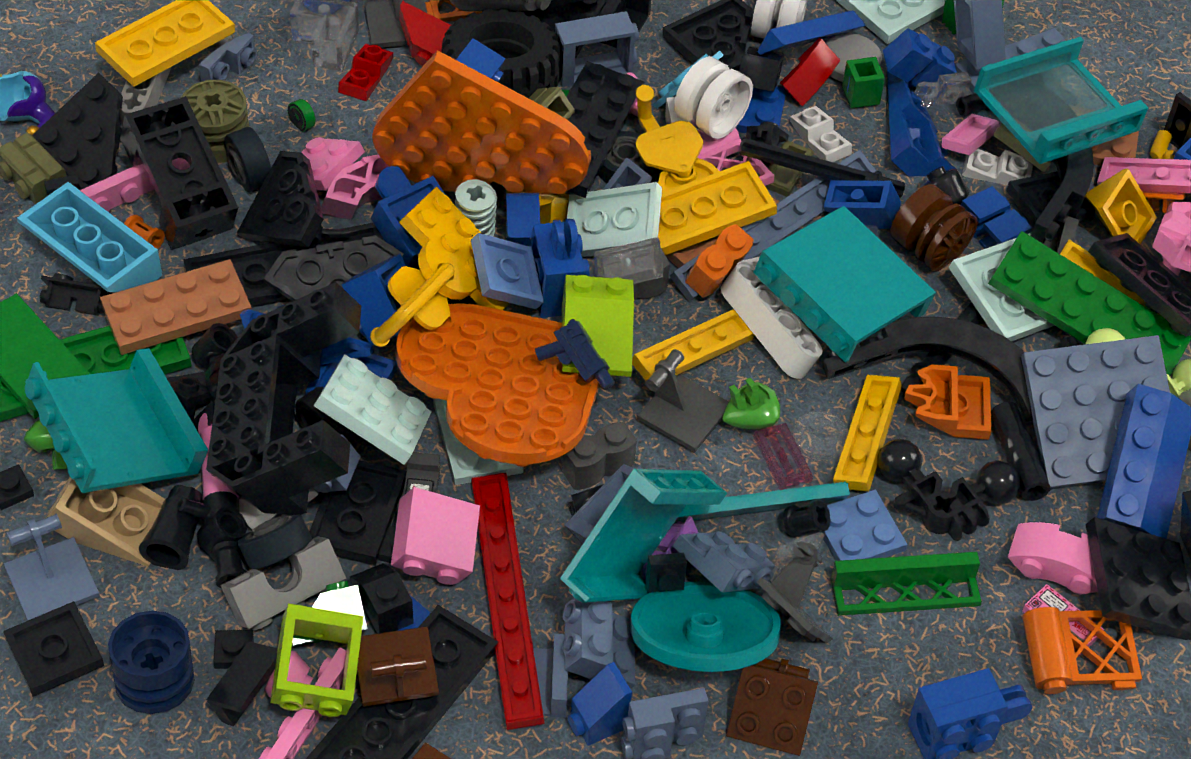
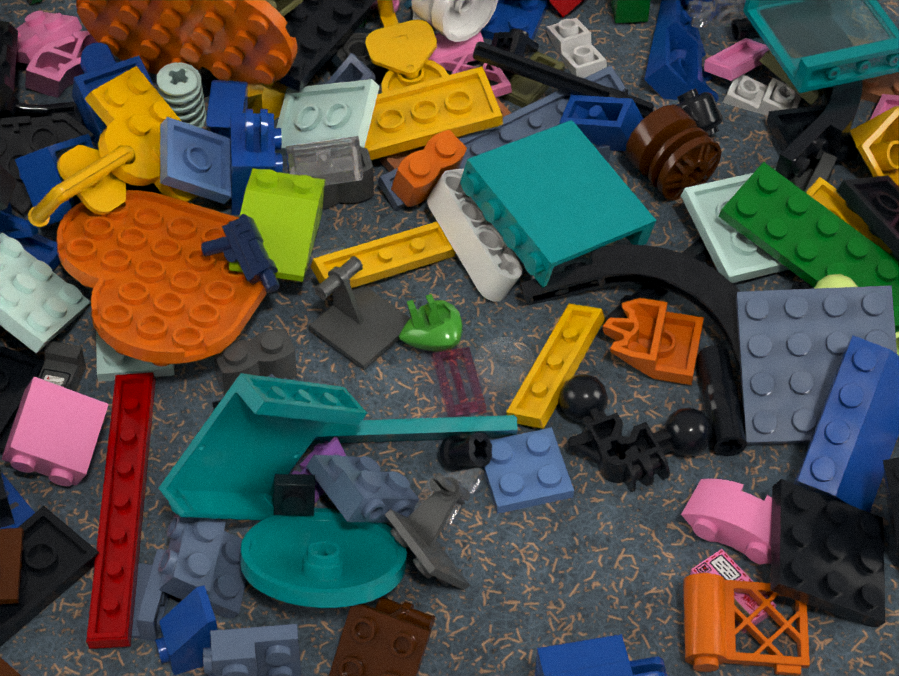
camera: 10 degrees right, 0 degrees up
(906, 571) = (566, 520): green fence -> none
(995, 217) = (743, 146): blue piece -> none

